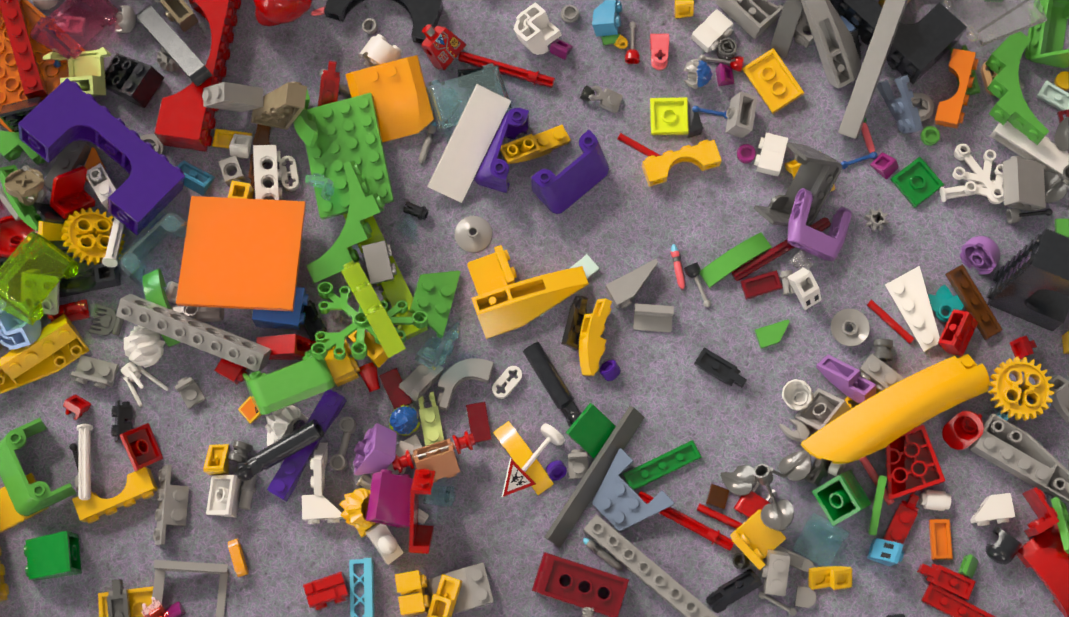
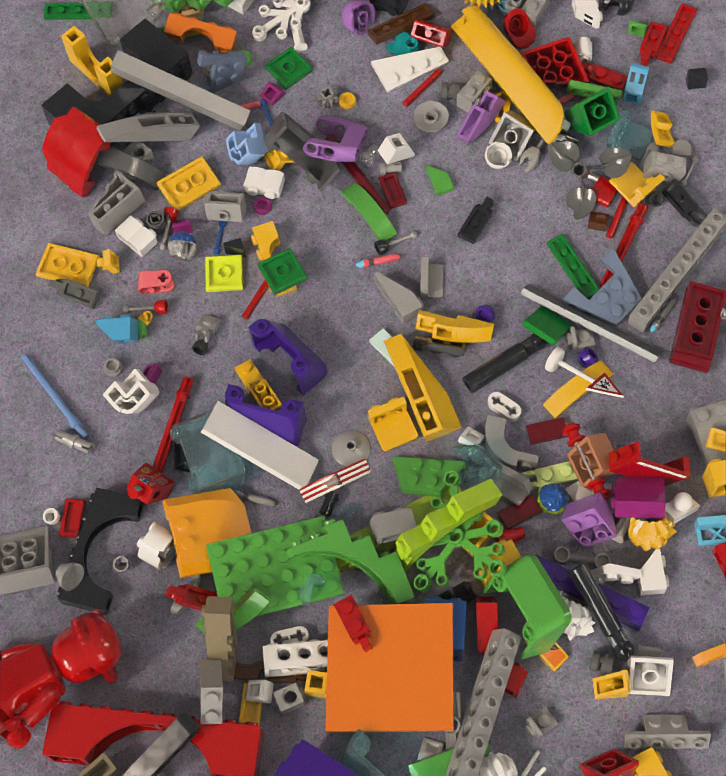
camera: 90 degrees left, 10 degrees down
(196, 178) = (295, 735): dark azure slope -> none
(283, 222) = (354, 622): none -> red hinge
(436, 216) = (335, 480): none -> sticker
(471, 345) = (471, 437): none -> white tile
(660, 167) = (282, 271): none -> green tile
(814, 133) = (246, 146): none -> light blue brick
(874, 242) = (347, 100): none -> yellow tile
(940, 539) = (616, 48): orange tile -> none

